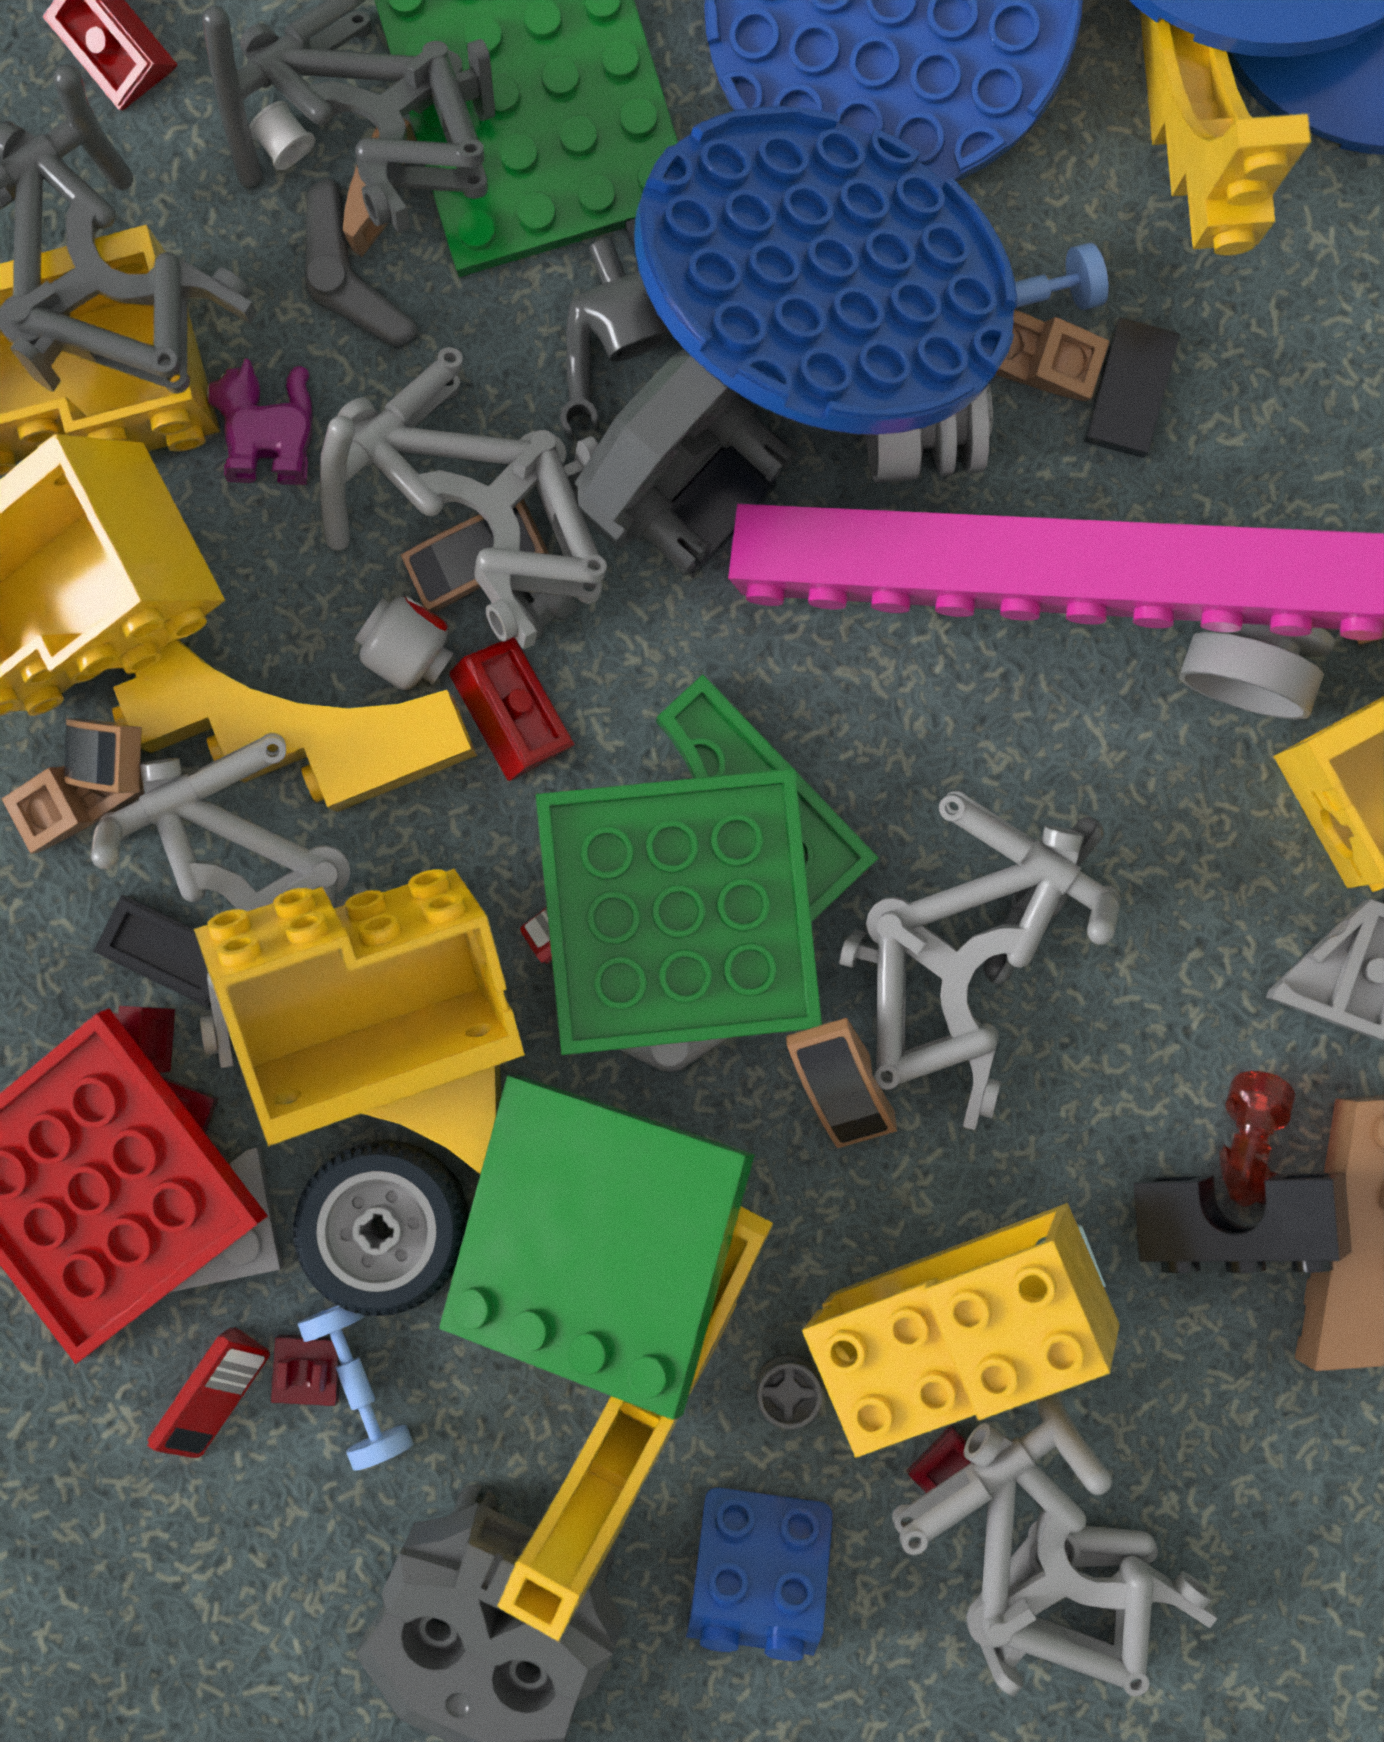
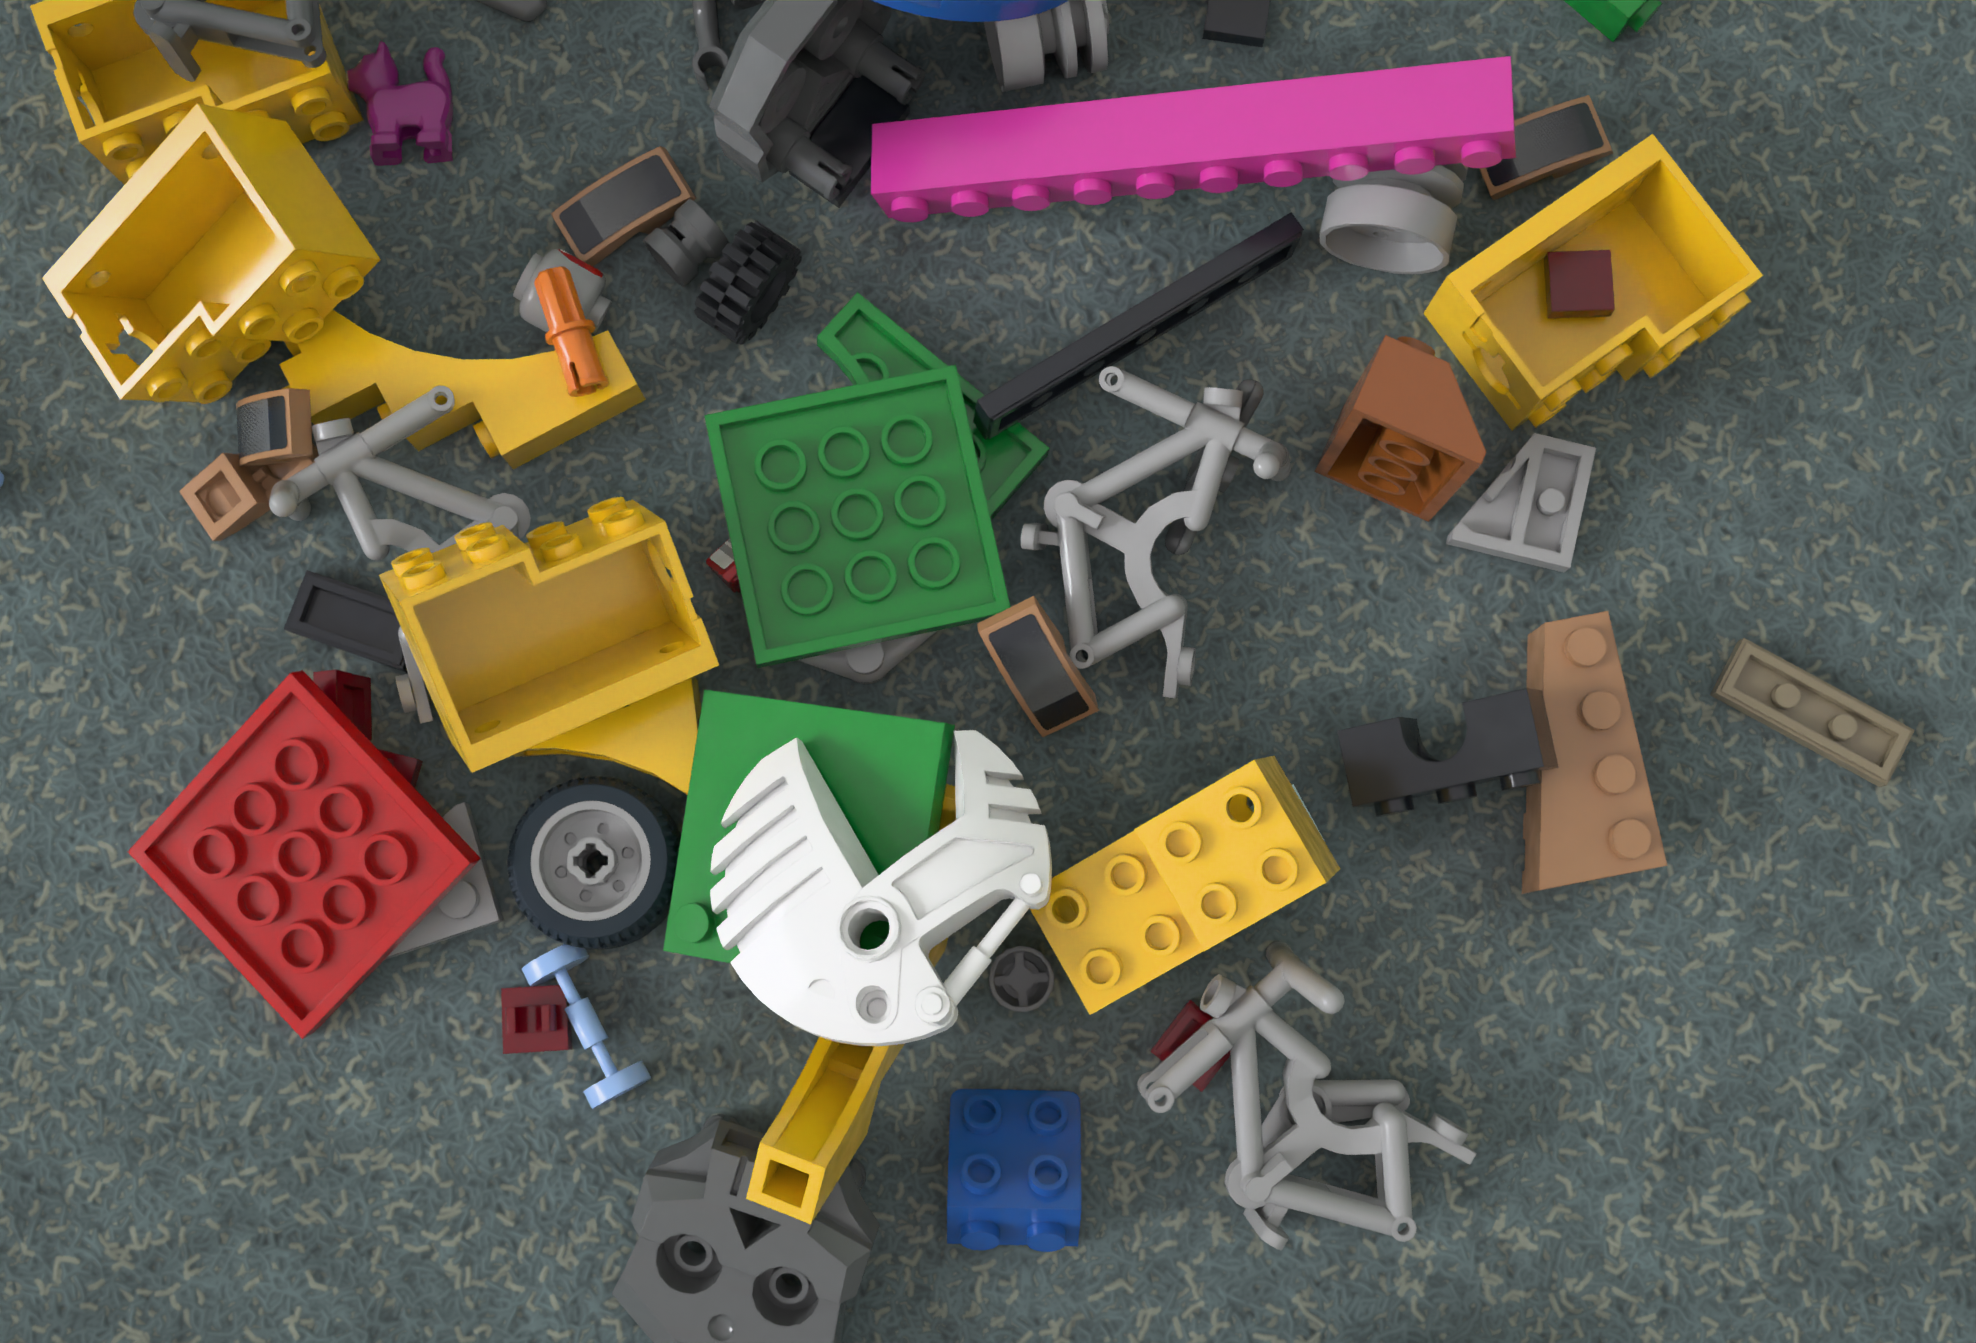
camera: 10 degrees left, 5 degrees down
(209, 1395) = (439, 1054): slope -> none
(364, 438) = (498, 99): light grey piece -> none
(408, 690) = (570, 332): none -> orange axle
(510, 708) = (673, 349): red slope -> none
(590, 1307) = (807, 890): none -> white piece
(593, 655) = (747, 282): none -> black tyre
(984, 745) = (1137, 327): none -> black tile
(1243, 898) = (1404, 431): none -> dark orange slope
(1259, 1106) = (1451, 644): clear red arm -> none

